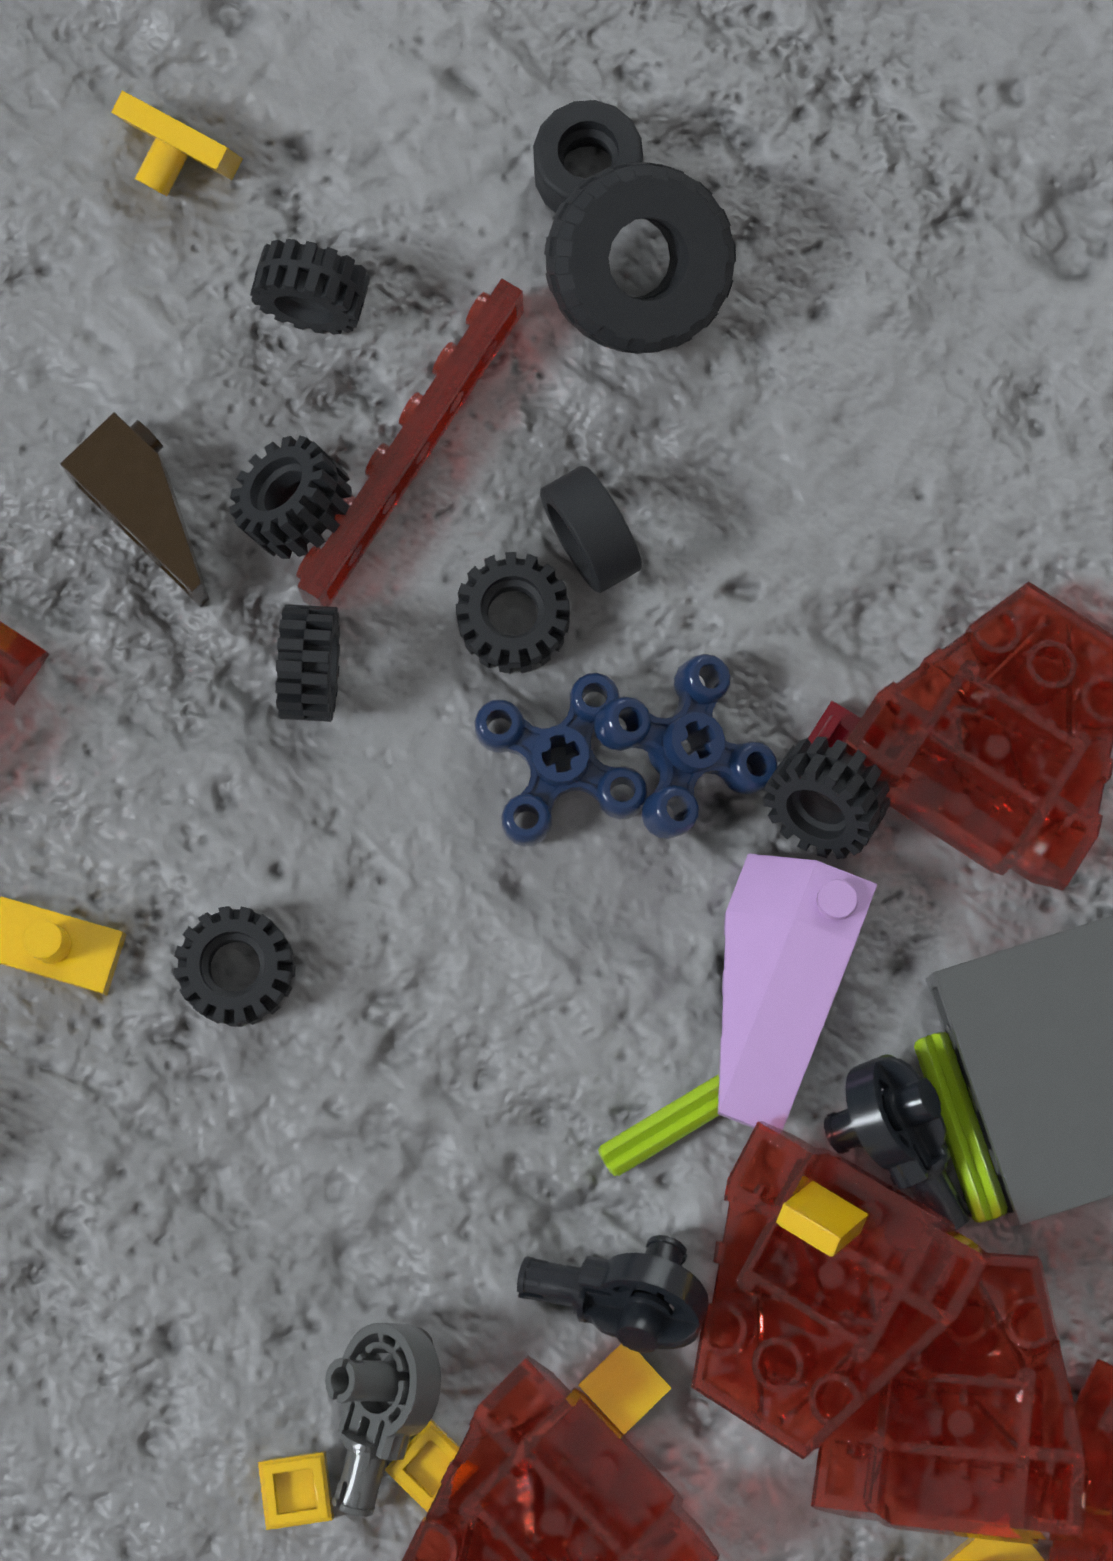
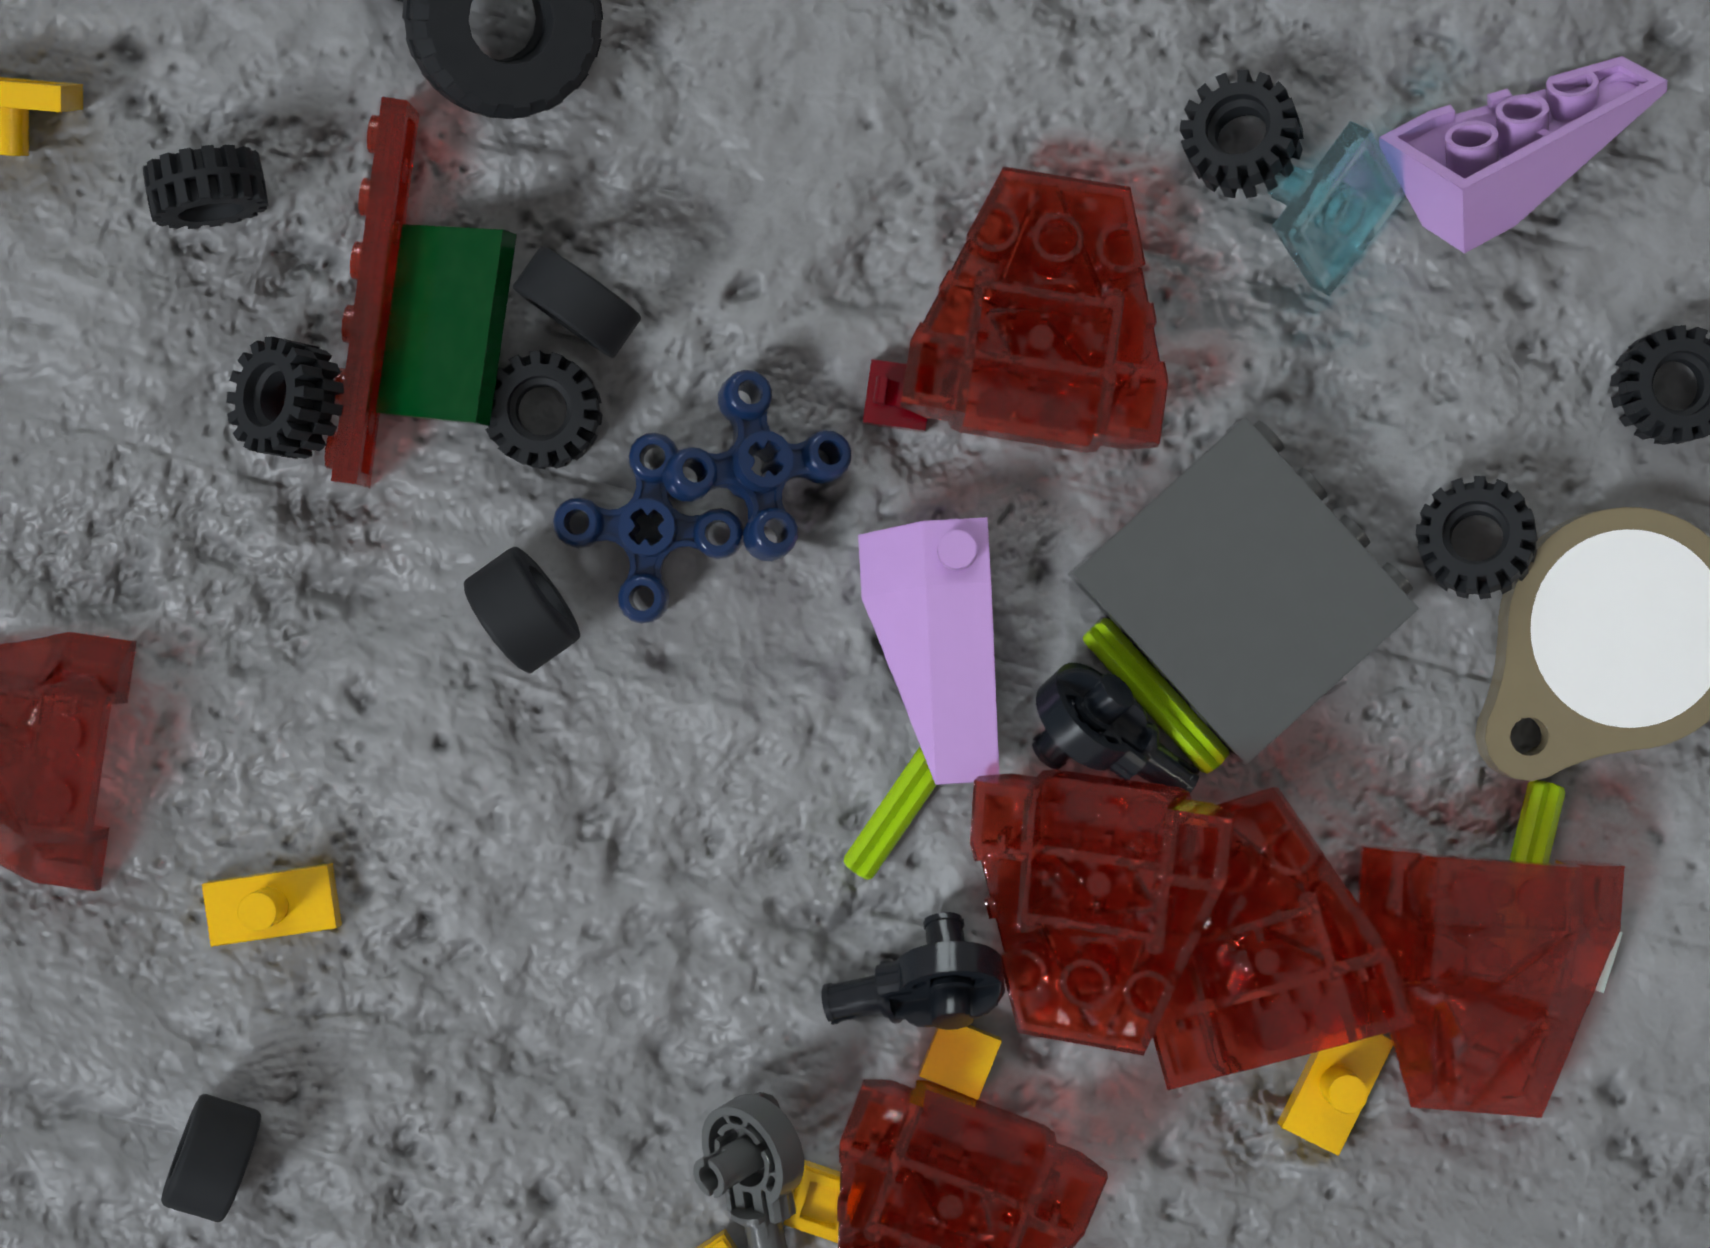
camera: 25 degrees left, 10 degrees up
(131, 486) = (142, 456): dark brown slope -> none
(202, 944) = (405, 858): black tyre -> none
(307, 663) = (375, 547): black tyre -> none
(412, 777) = (521, 610): none -> black tyre
(463, 498) = (446, 323): none -> dark green tile
(821, 1218) = (1068, 840): yellow tile -> none
(837, 775) = (906, 456): black tyre -> none

